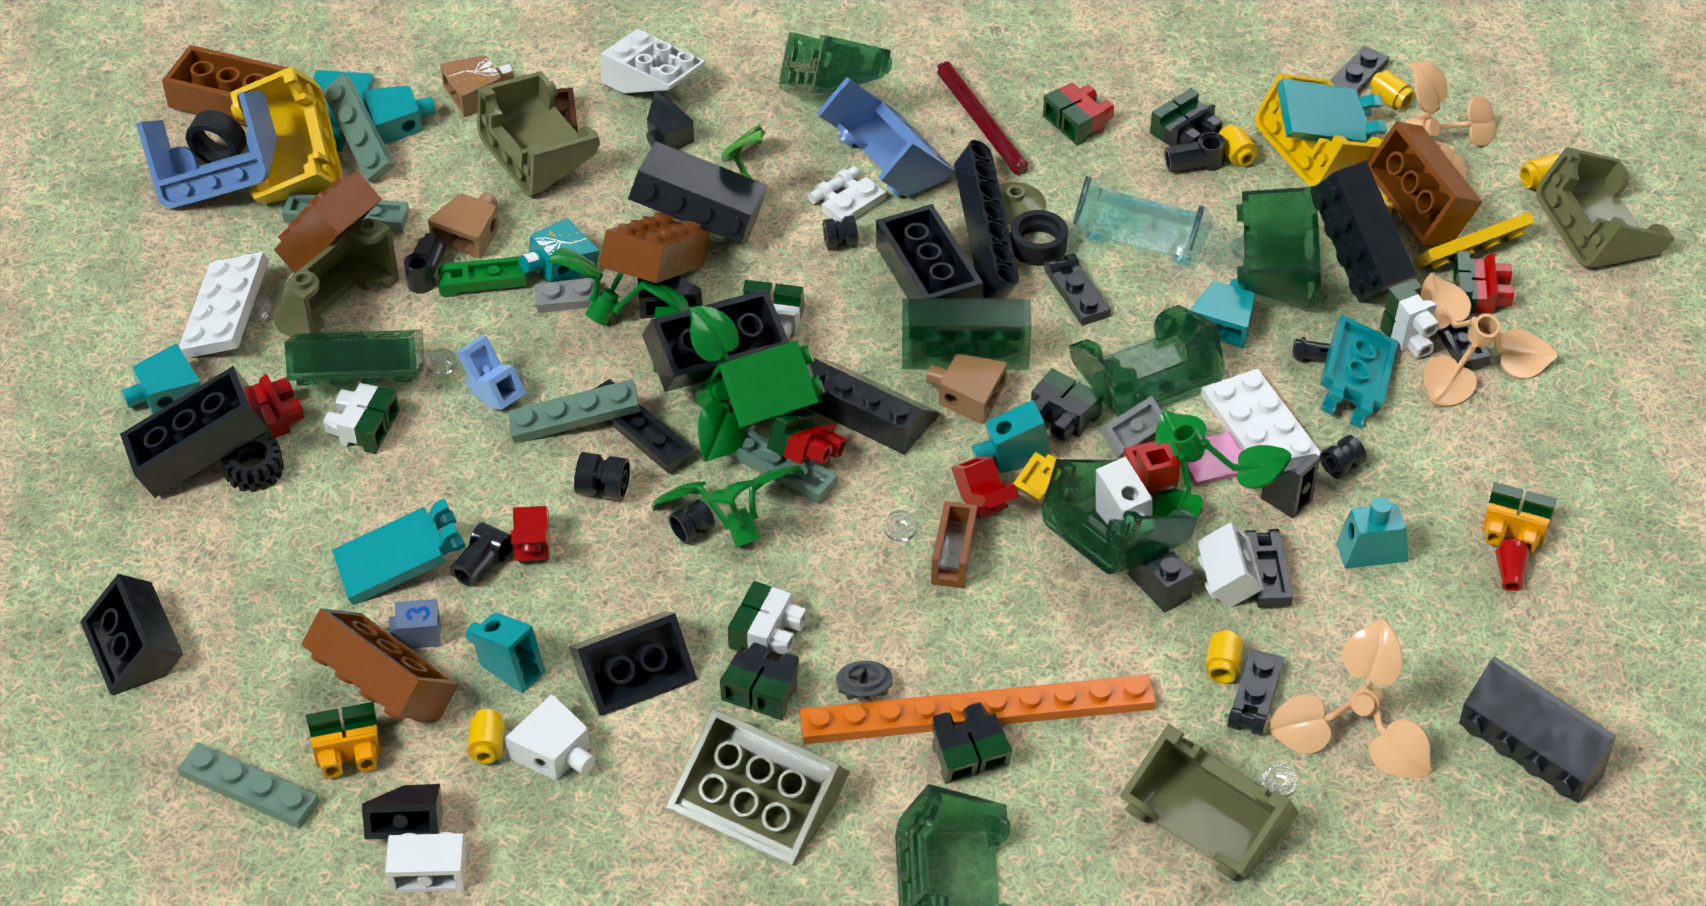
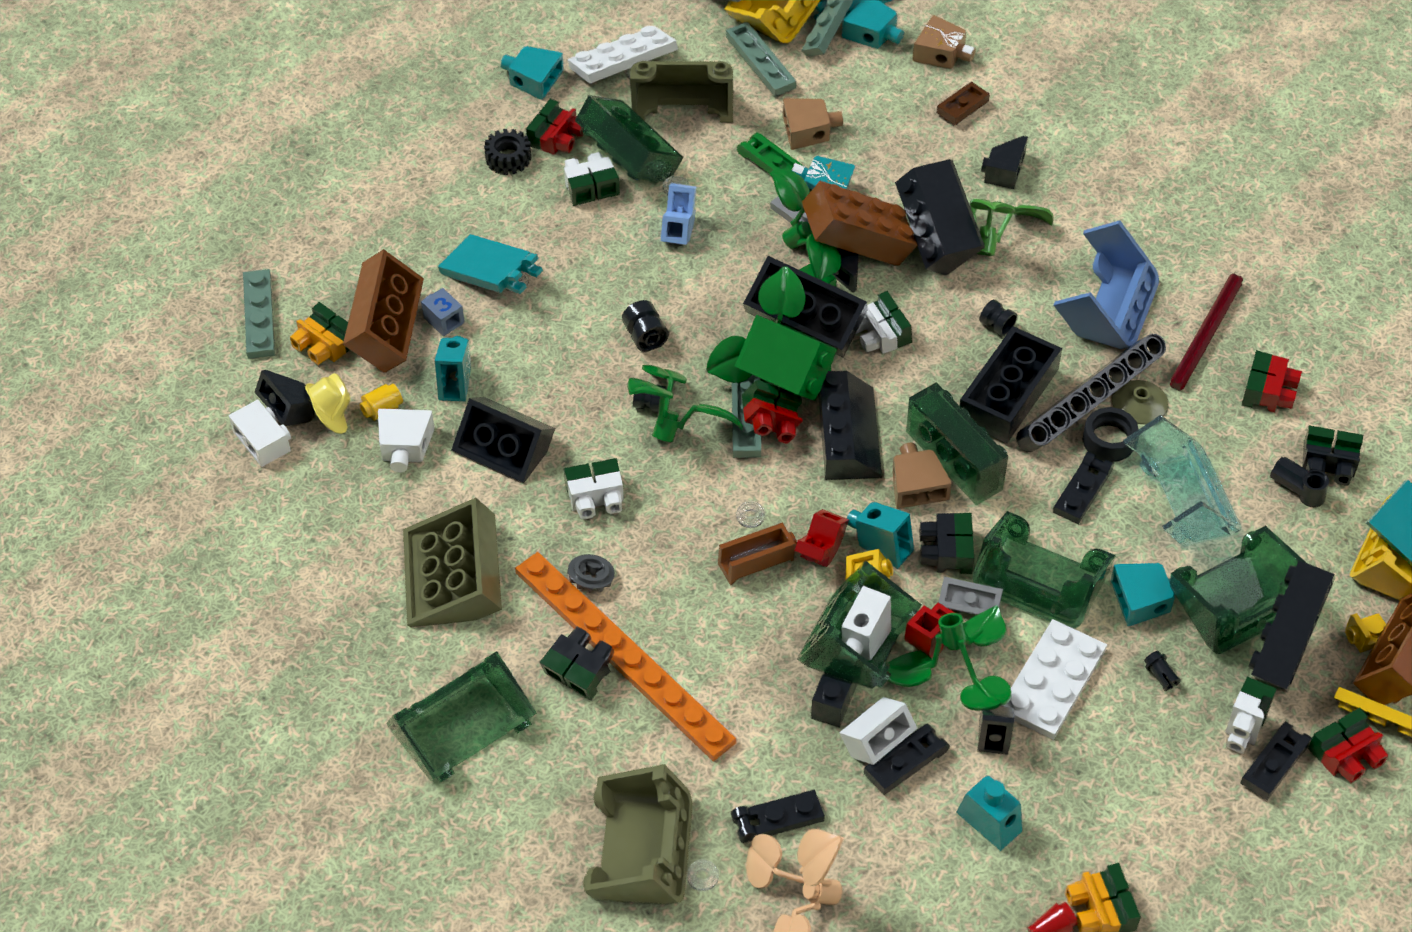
camera: 55 degrees right, 5 degrees up
(130, 635) = (325, 186): black slope -> none
(193, 432) = (491, 105): black brick -> none
(326, 219) = (713, 43): dark orange brick -> none
(423, 263) = (745, 123): black piece -> none
(447, 768) = (330, 402): none -> light yellow piece
(484, 549) = (537, 306): black piece -> none
(529, 133) = (919, 97): olive windscreen -> none
(531, 533) = (564, 321): red brick -> none
(574, 411) = (689, 277): sand green plate -> none
(646, 64) = (1048, 114): white slope -> none
(652, 437) = (711, 317): black plate -> none
(760, 681) = (538, 515): hips -> none
(822, 64) = (1146, 208): clear green windscreen -> none
(854, 200) = (1037, 307): white plate -> none
(1210, 467) = (992, 661): bright pink piece -> none
(1224, 657) = (790, 776): yellow brick -> none
(1238, 146) = (1339, 502): yellow brick -> none
(1345, 455) = (1063, 748): black wheel -> none
(1357, 369) = (1167, 708): teal tile -> none
(1448, 381) = (1288, 729): light nougat plant -> none

